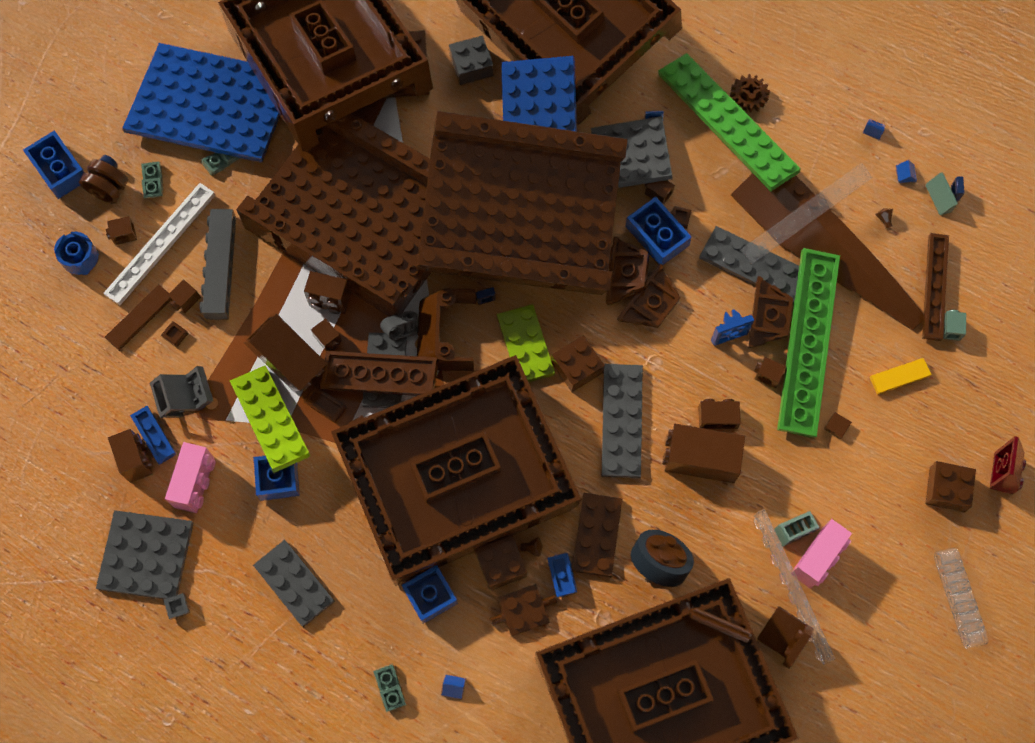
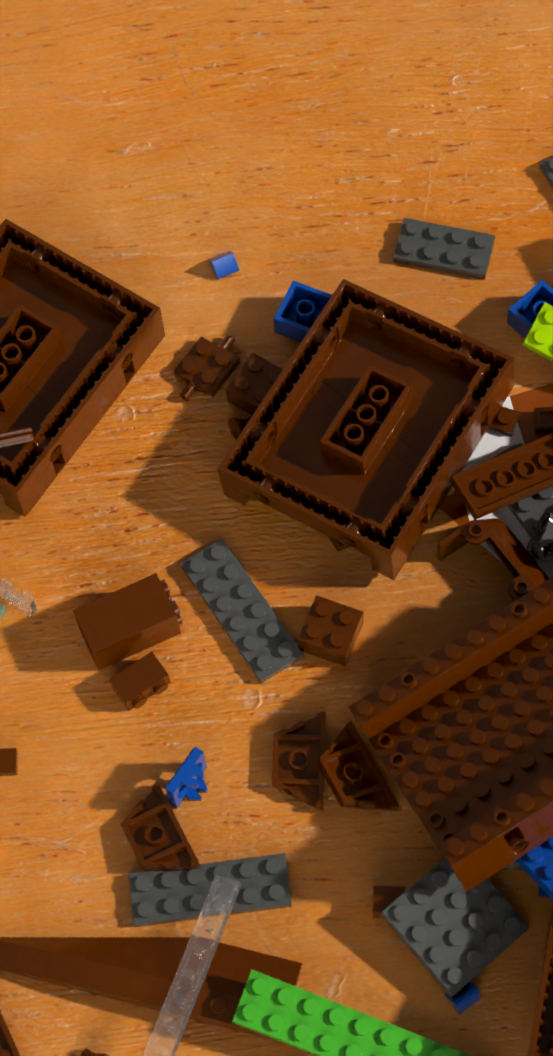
camera: 150 degrees right, 5 degrees down
(176, 606) = (532, 159): dark grey plate -> none
(389, 687) = (281, 226): sand green slope -> none
(526, 341) = (404, 618): lime plate -> none
(562, 575) = (192, 418): blue plate -> none
(597, 535) = (185, 482): reddish brown plate -> none
(658, 231) = (351, 841): blue brick -> none
(662, 558) = (100, 486): black wheel -> none
(682, 215) = (341, 889): reddish brown tile -> none
(769, 372) = (115, 766): reddish brown brick -> none
(808, 343) = (93, 831): bright green plate -> none

